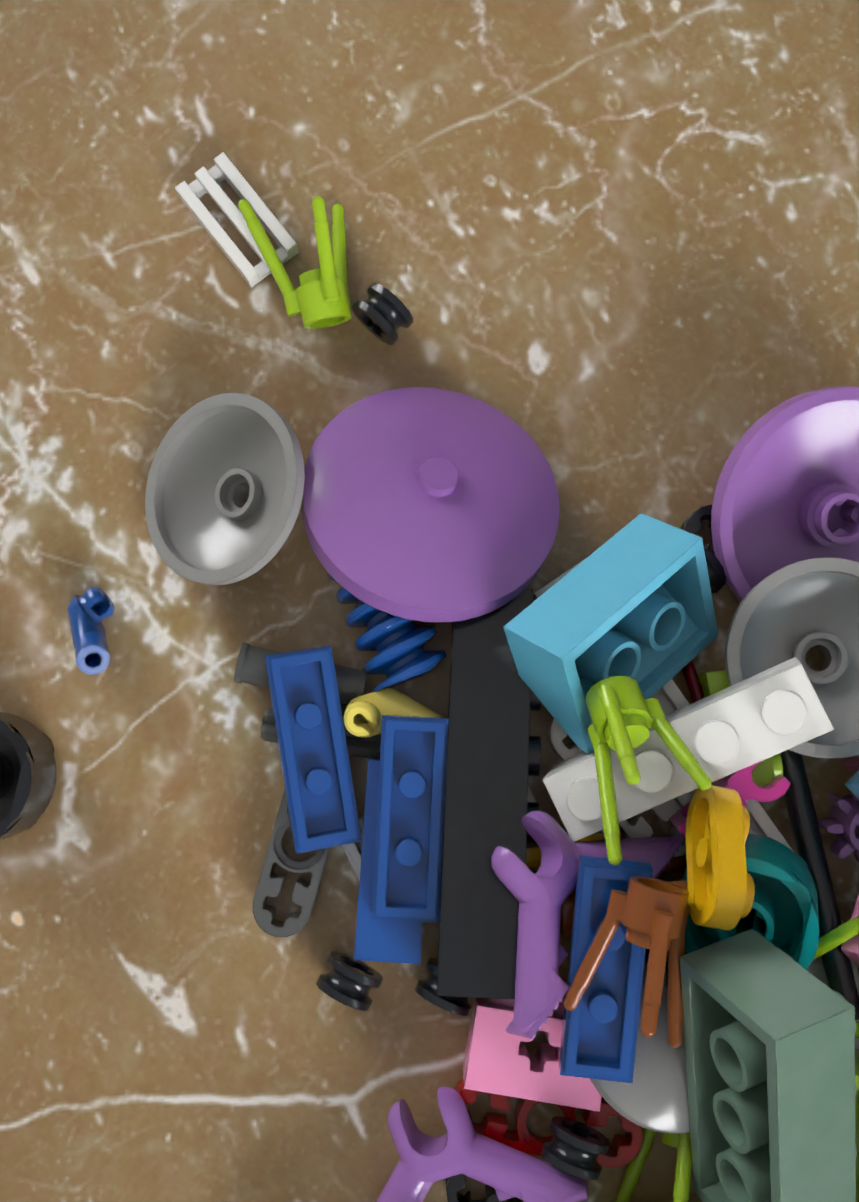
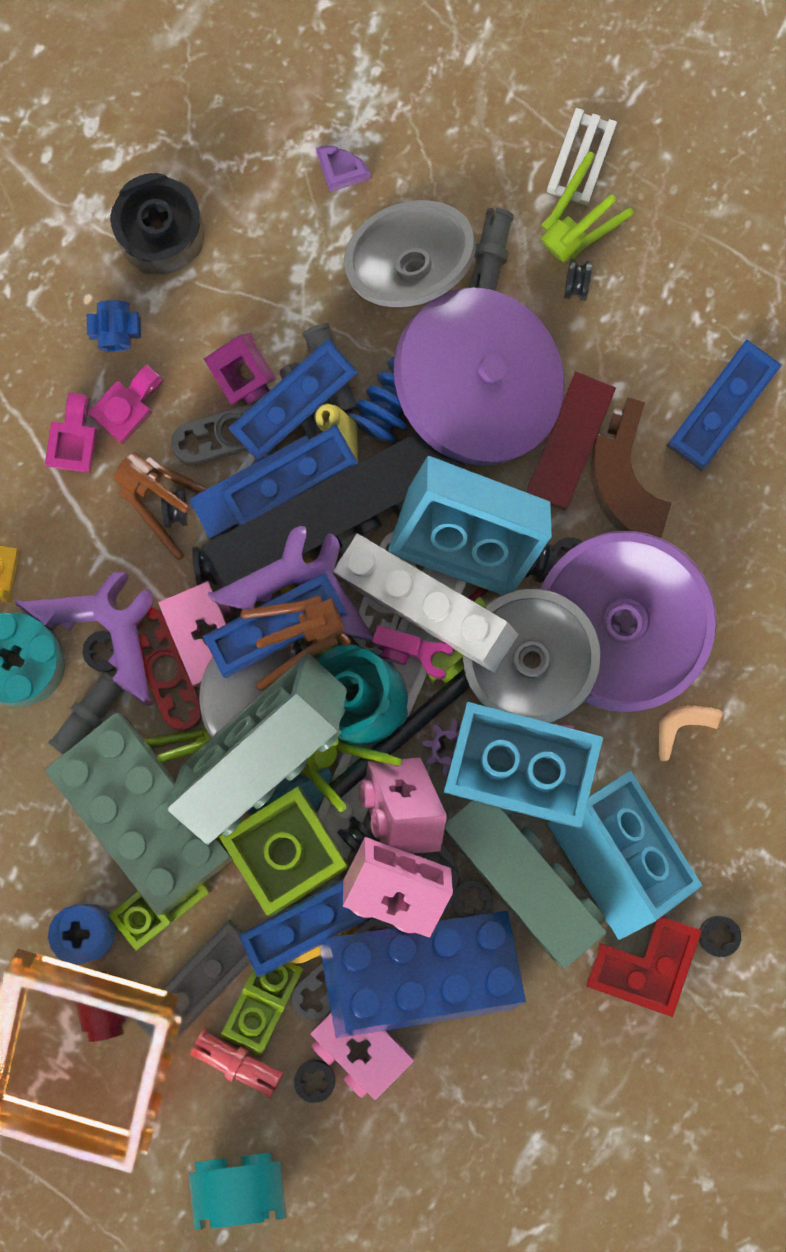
camera: 60 degrees right, 0 degrees up
(61, 506) = (341, 167): none -> medium lavender tile
(70, 914) = (113, 325): none -> blue gear
(88, 631) = (277, 231): blue arm -> none
(184, 963) = (123, 409): none -> dark pink plate
(185, 1061) = (72, 443): none -> dark pink plate
(223, 806) = (226, 368): none -> magenta brick
(280, 390) = (491, 250): none -> dark grey pin
(288, 1003) = (141, 478): none -> dark orange plant
(575, 449) = (571, 440): none -> dark red tile
(575, 1148) = (164, 684): black bush -> none
(622, 723) = (414, 549): lime plant -> none
(636, 245) = (724, 405): none -> blue tile
(656, 421) = (613, 479): none -> reddish brown arch
(716, 858) = (359, 649): yellow plate -> none

